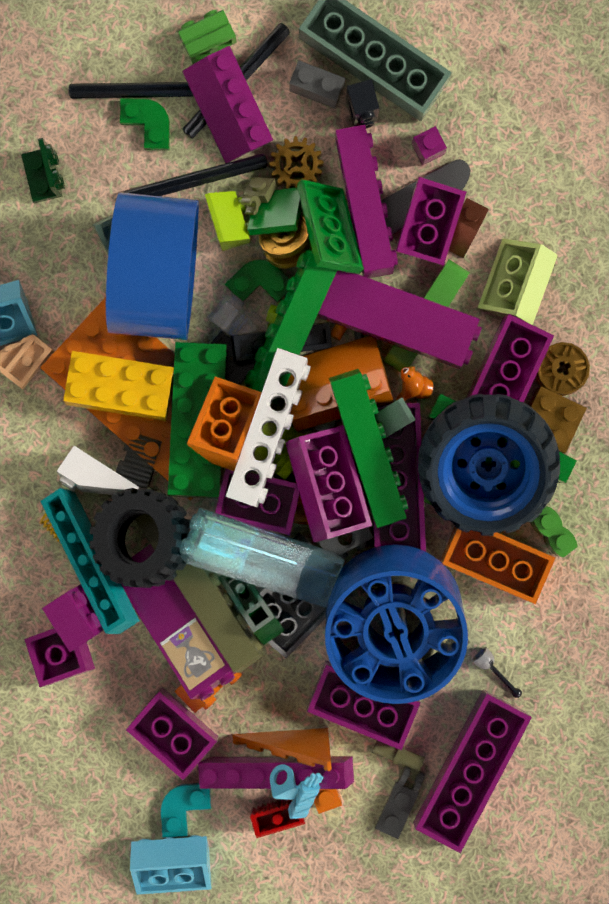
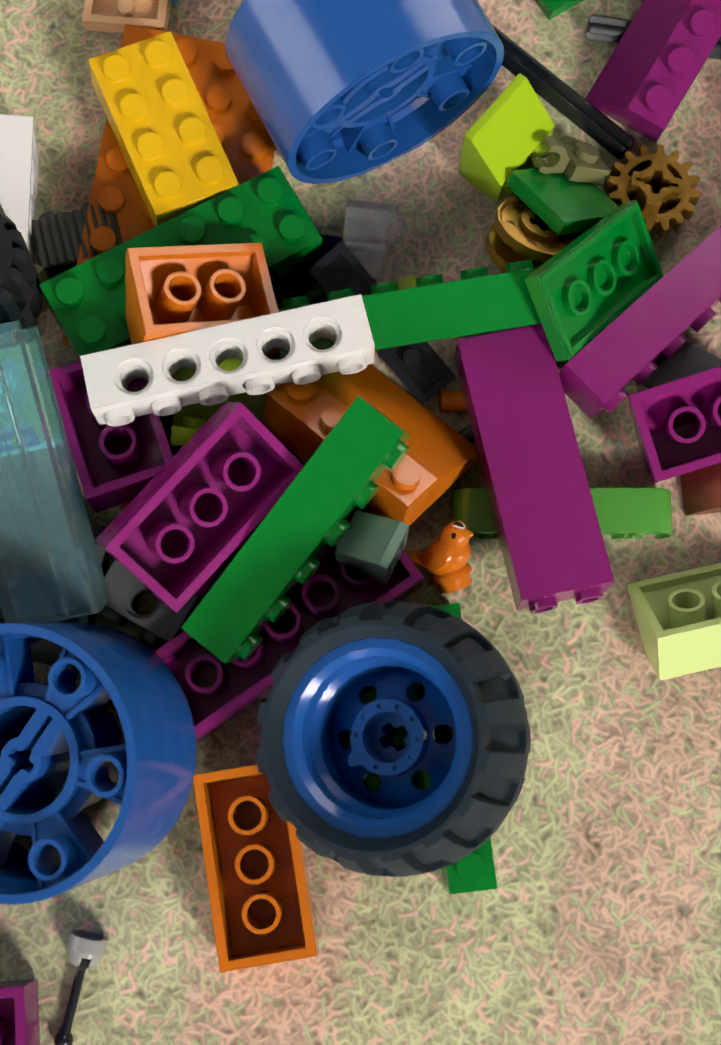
camera: 60 degrees right, 10 degrees down
(257, 274) = (449, 233): green plate -> none
(511, 359) = (589, 682): magenta slope -> none
(556, 537) = (353, 940): bright green brick -> none
(559, 413) = (547, 814): pearl gold brick -> none
(575, 375) = (649, 763): pearl gold wheel -> none

